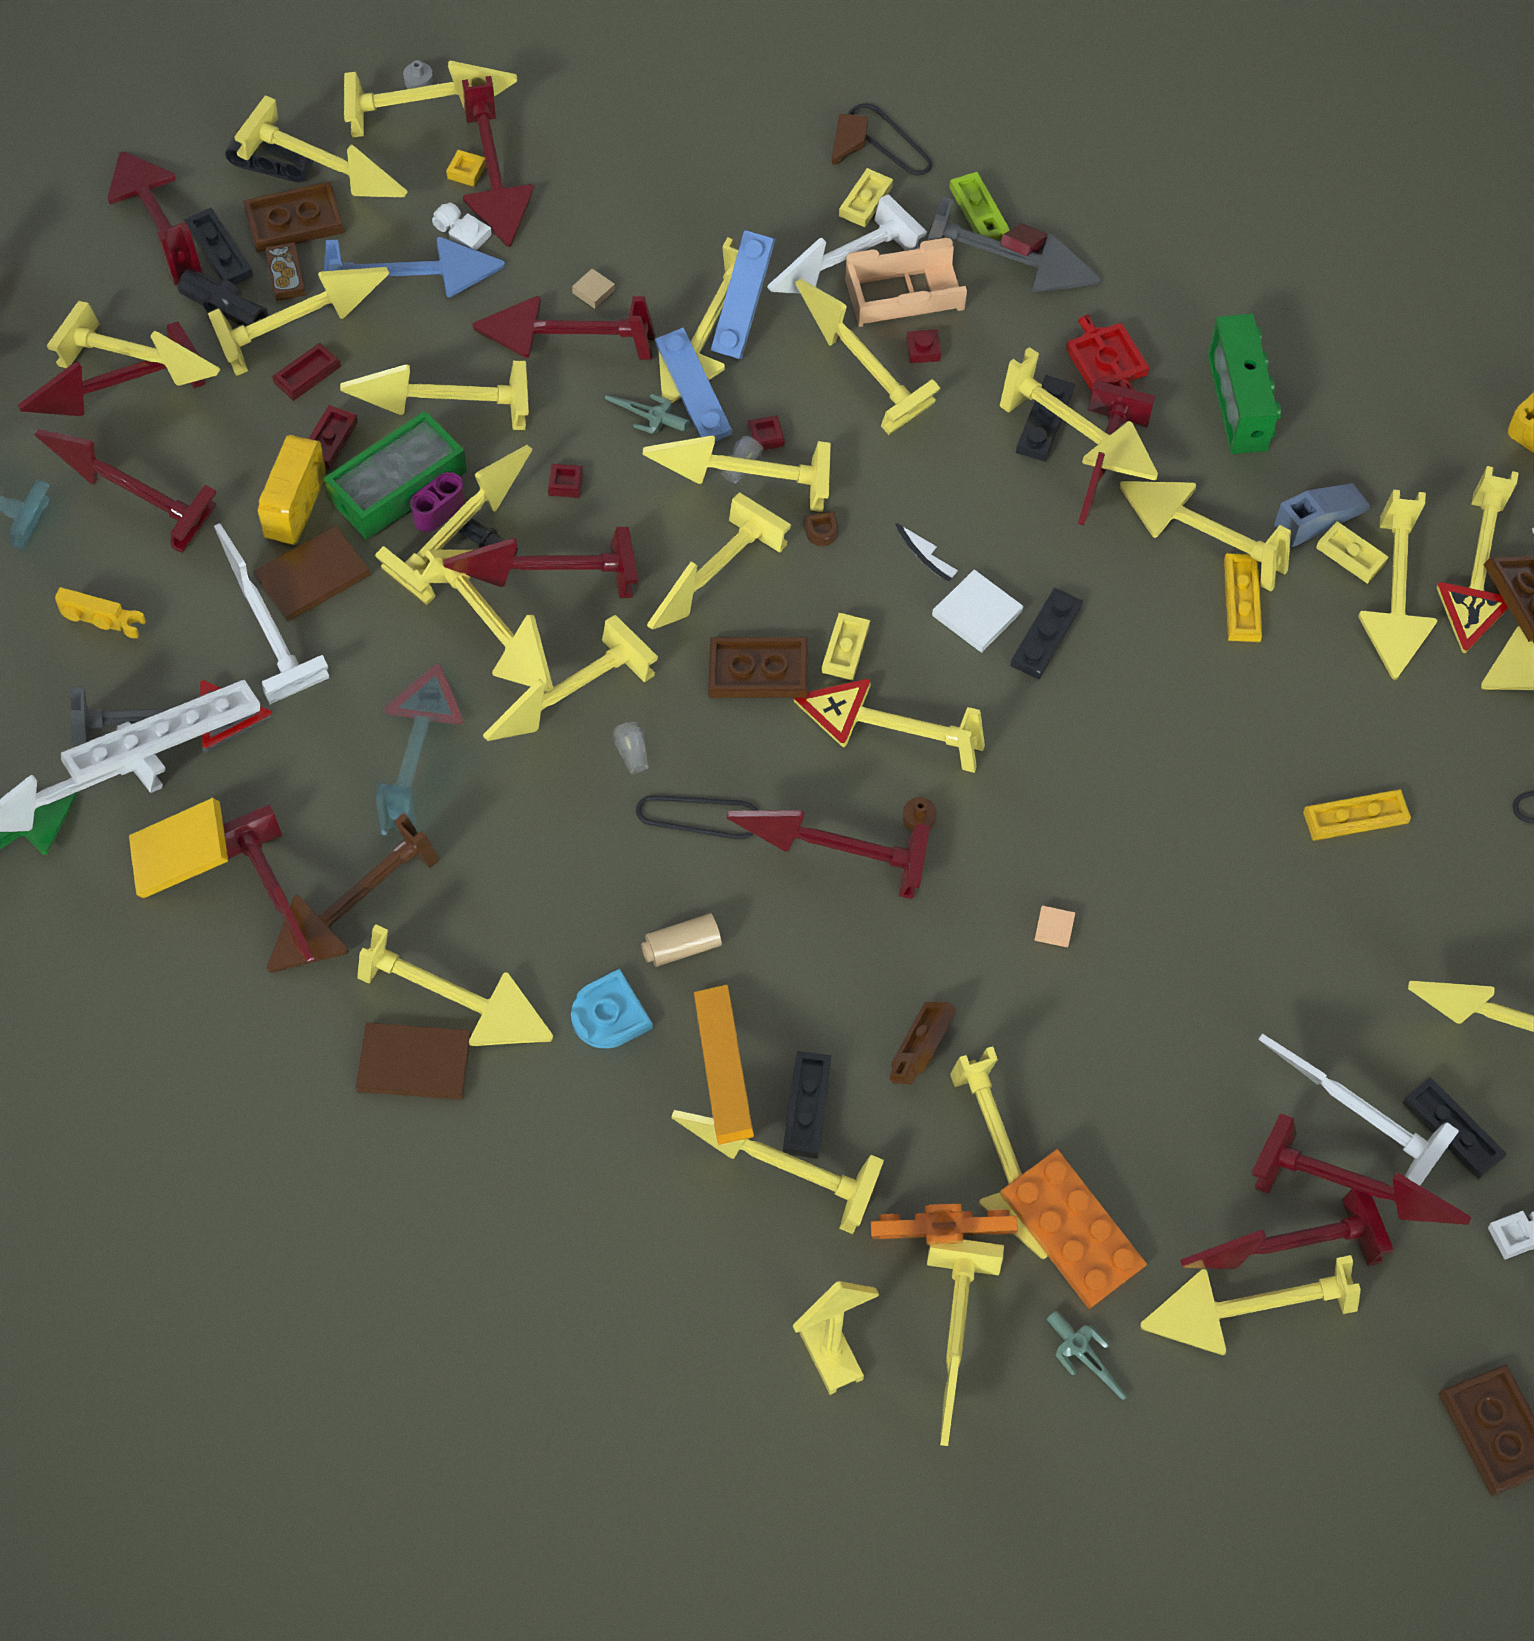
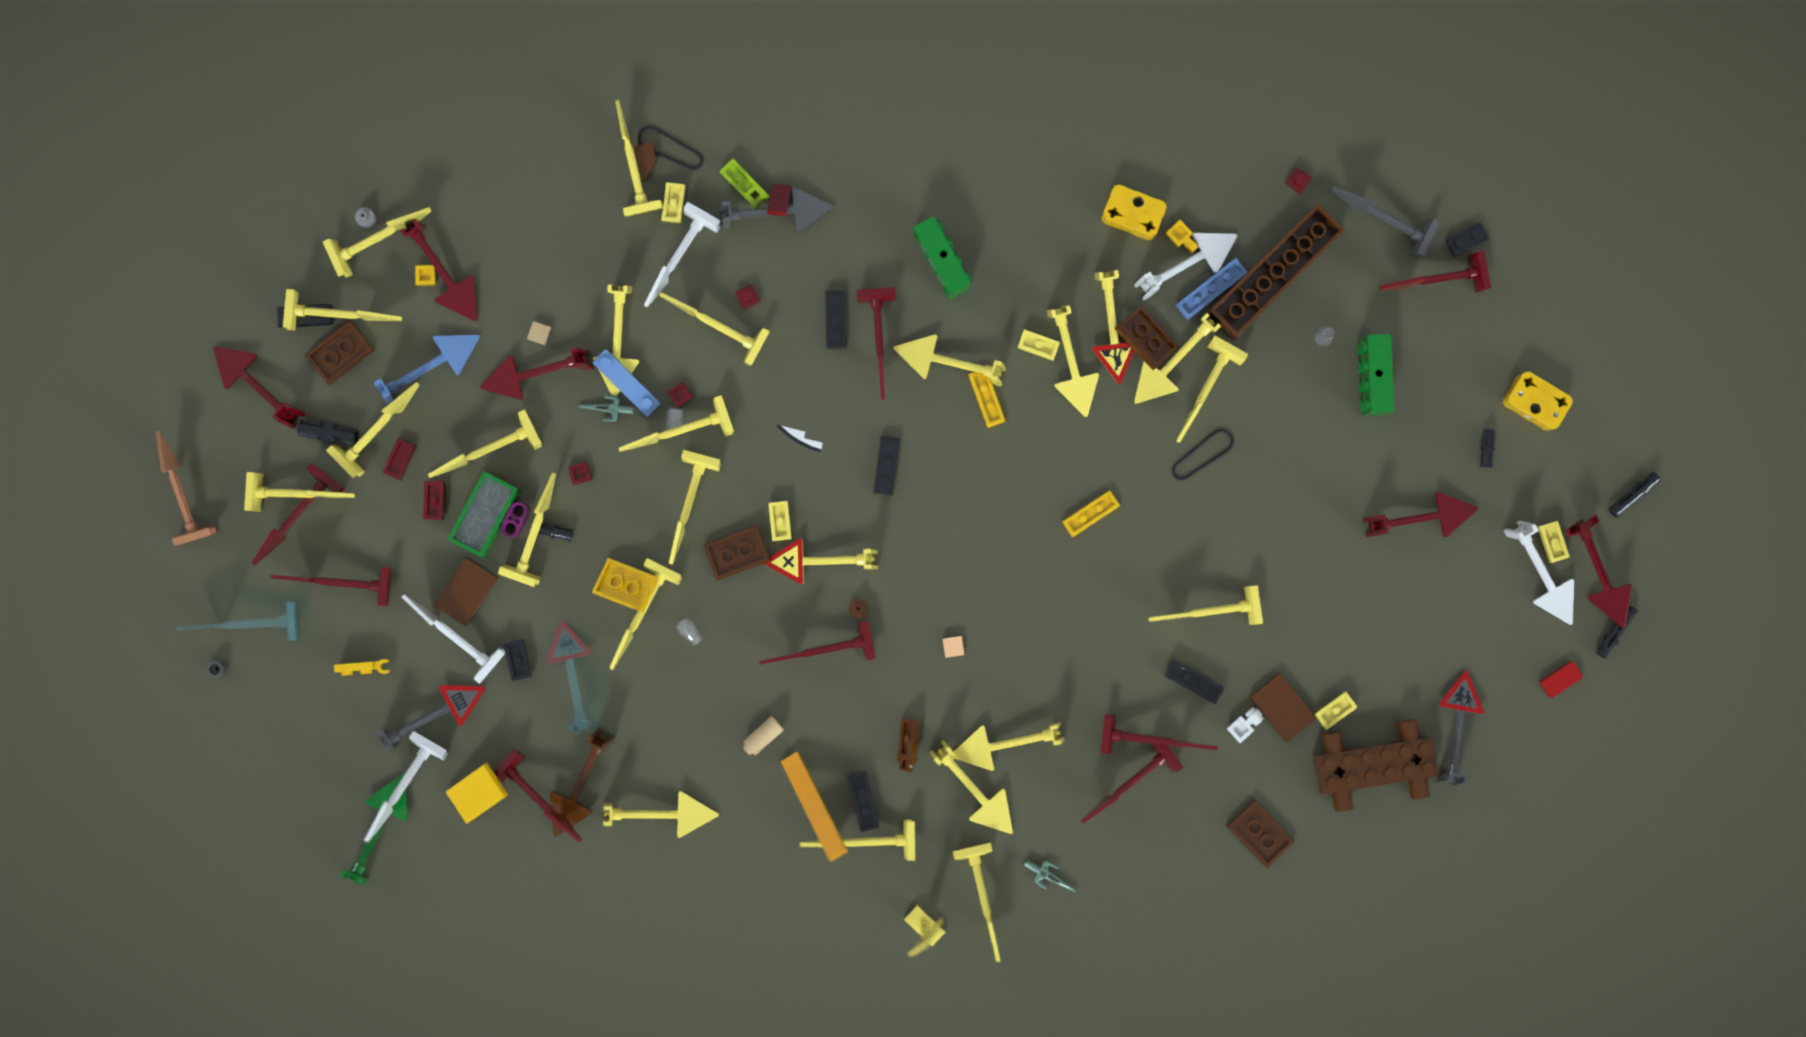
camera: 20 degrees left, 25 degrees up
(160, 732) = (435, 733): white plate -> none
(218, 247) = (307, 395): black plate -> none
(285, 271) = (353, 394): tile -> none
(292, 489) = (431, 550): yellow axle -> none
(342, 690) = (517, 660): none -> black plate
(413, 1061) = (653, 856): reddish brown tile -> none
(464, 231) = (447, 322): white plate -> none
(496, 560) = (634, 519): dark red piece -> none
(523, 654) = (607, 606): light yellow piece -> none
(571, 643) = (625, 585): none -> yellow tile
(609, 1012) = (741, 789): medium azure tile -> none
(694, 800) = (736, 646): black piece -> none
(743, 294) = (631, 315): medium blue plate -> none
(820, 184) = (642, 204): none -> light yellow piece
(821, 528) = (737, 446): reddish brown tile -> none
(932, 259) = (740, 243): light nougat piece -> none
(944, 1225) = (957, 845): orange plate -> none
(977, 611) = (843, 466): white tile -> none
(1037, 1097) = (977, 749): none -> light yellow piece
(1073, 1228) = (1020, 815): orange plate -> none
(1106, 355) = (856, 264): red plate -> none
(1122, 449) = (888, 337): light yellow piece -> none
(1194, 1316) = (1095, 835): light yellow piece -> none
(1319, 510) = (1013, 325): sand blue slope -> none
(1425, 1152) = (1112, 686): white piece -> none

